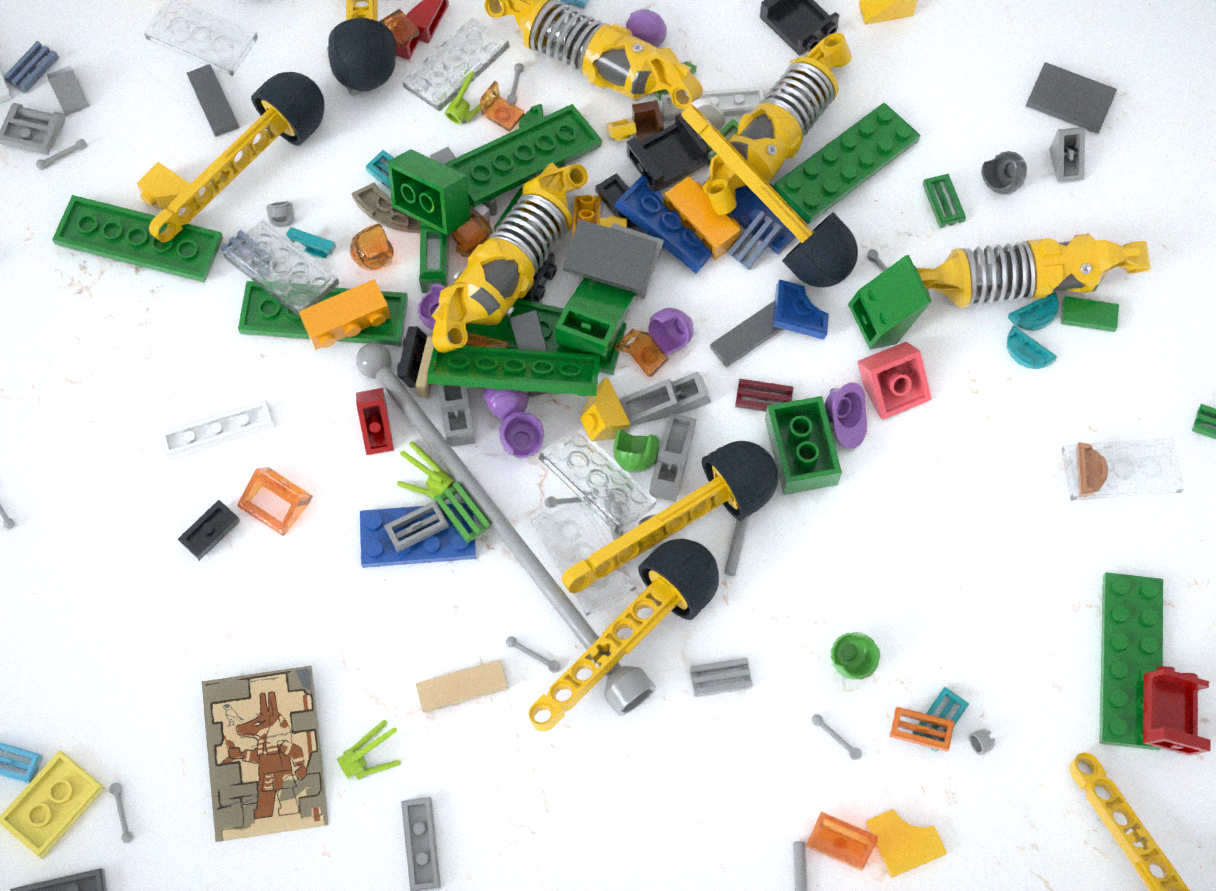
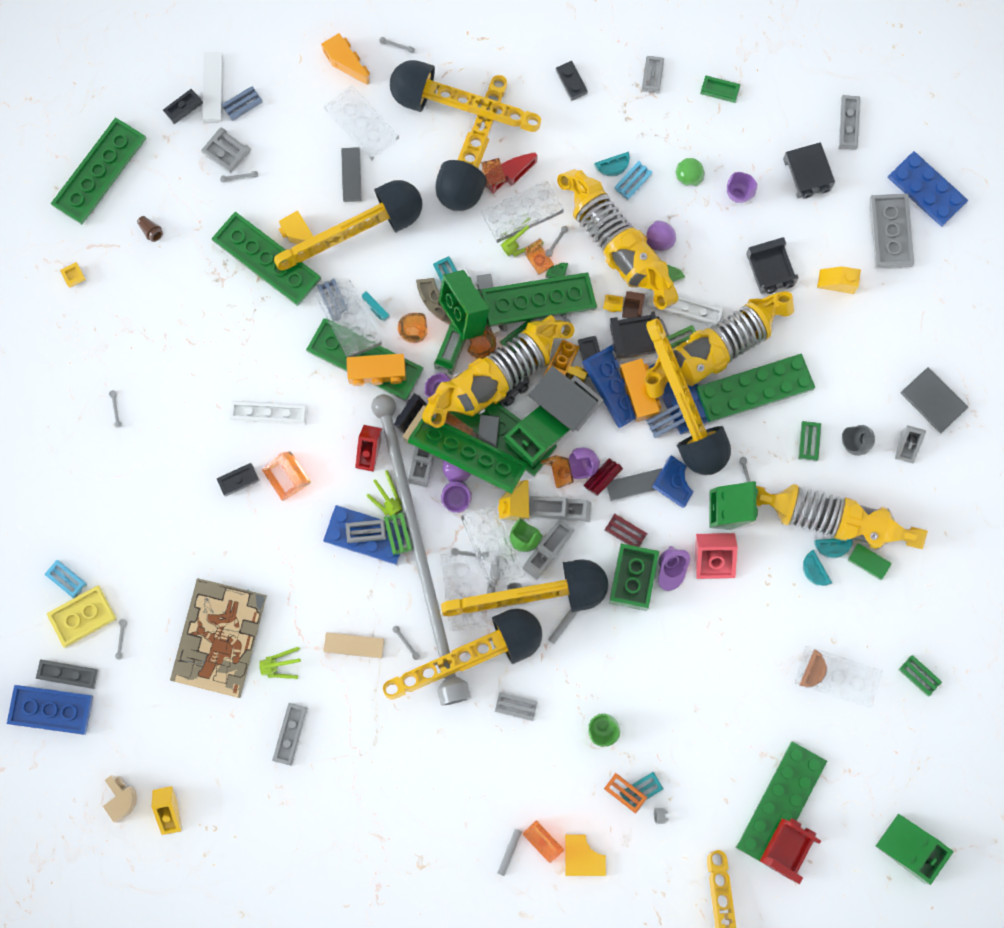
camera: 25 degrees right, 10 degrees up
(68, 90) = (259, 129): light grey slope -> none
(280, 209) = (364, 274): light grey tile -> none
(704, 339) = (603, 477): none -> dark red tile
(710, 111) = (673, 317): white tile -> none
(854, 753) = (578, 789): light grey hinge -> none

